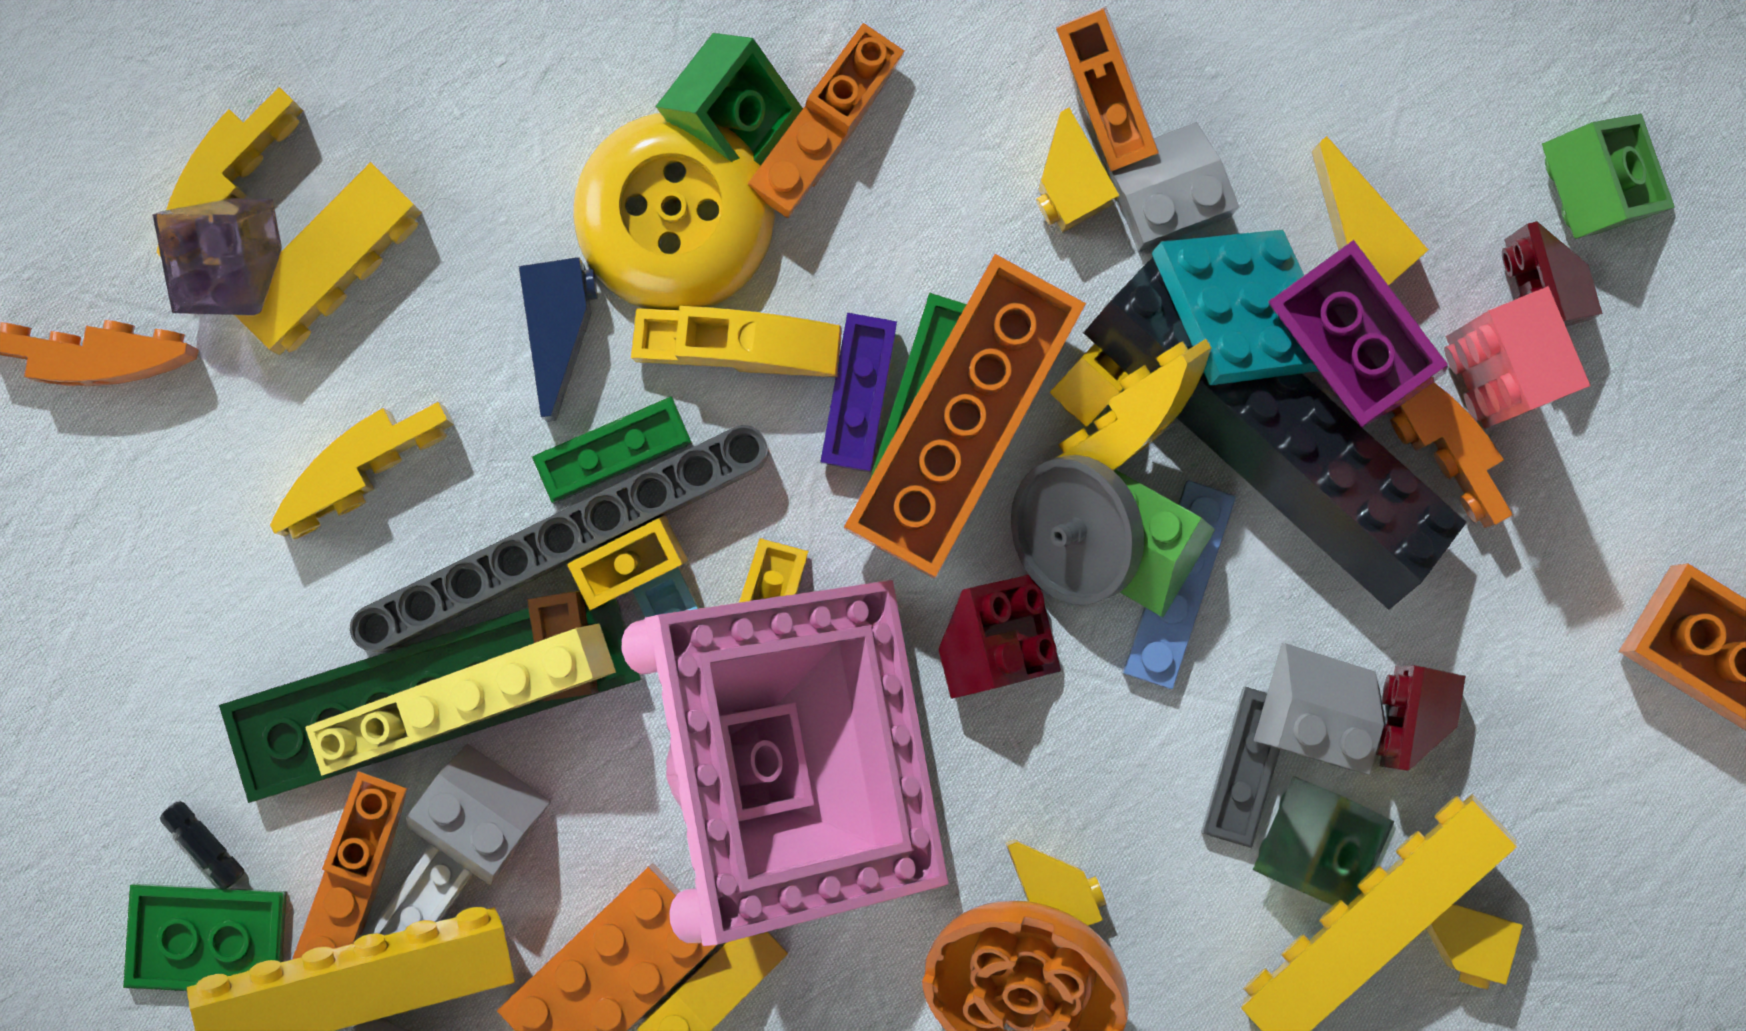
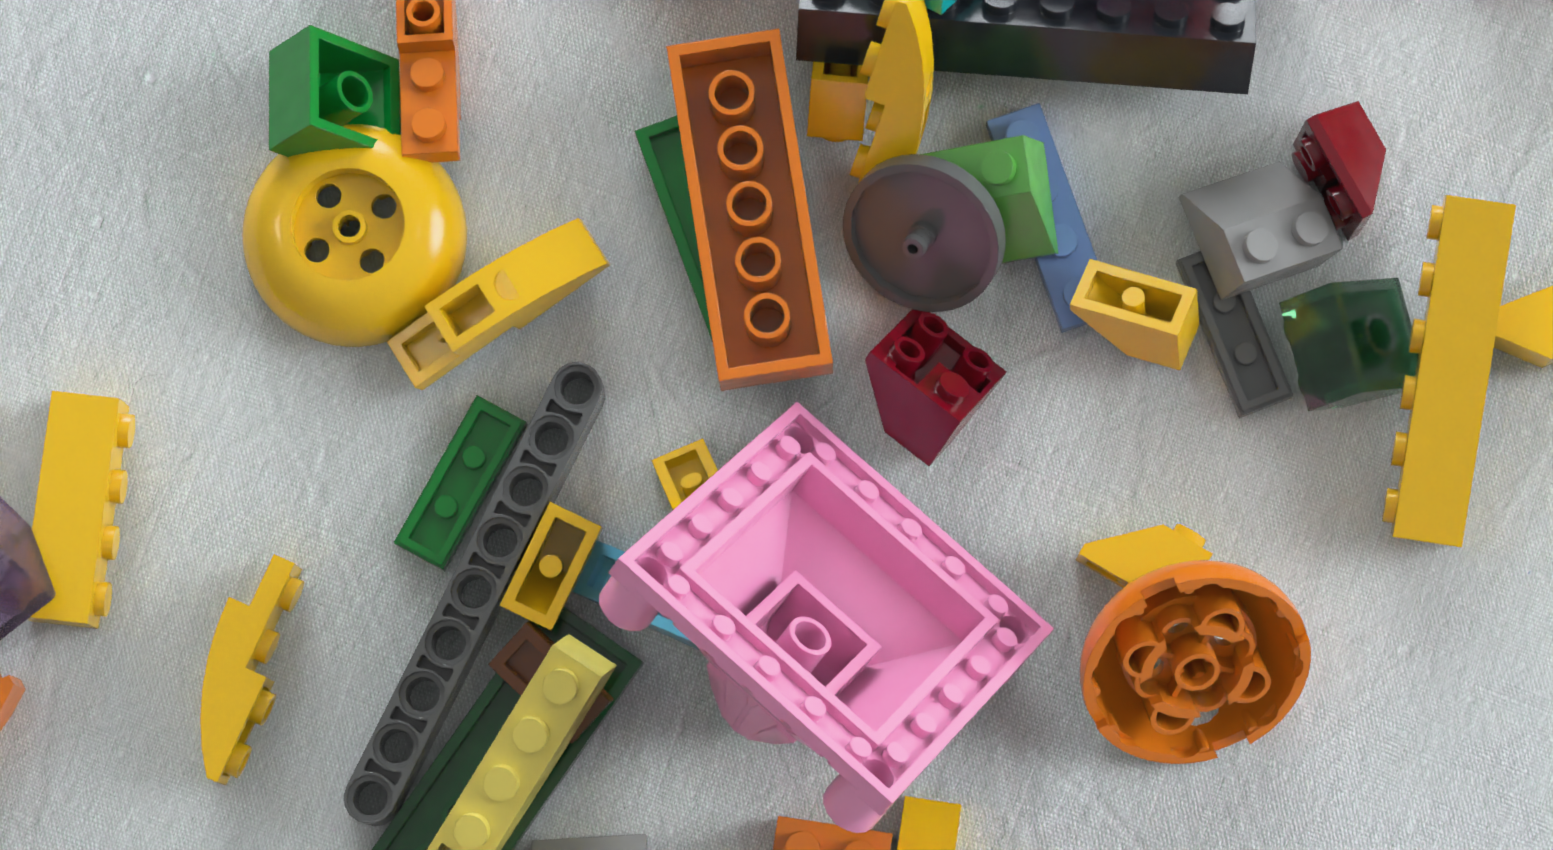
camera: 30 degrees left, 5 degrees down
(556, 317) = (321, 400): dark blue slope -> none
(858, 392) = (640, 265): dark purple plate -> none
(1186, 704) = (1138, 312): none -> yellow slope

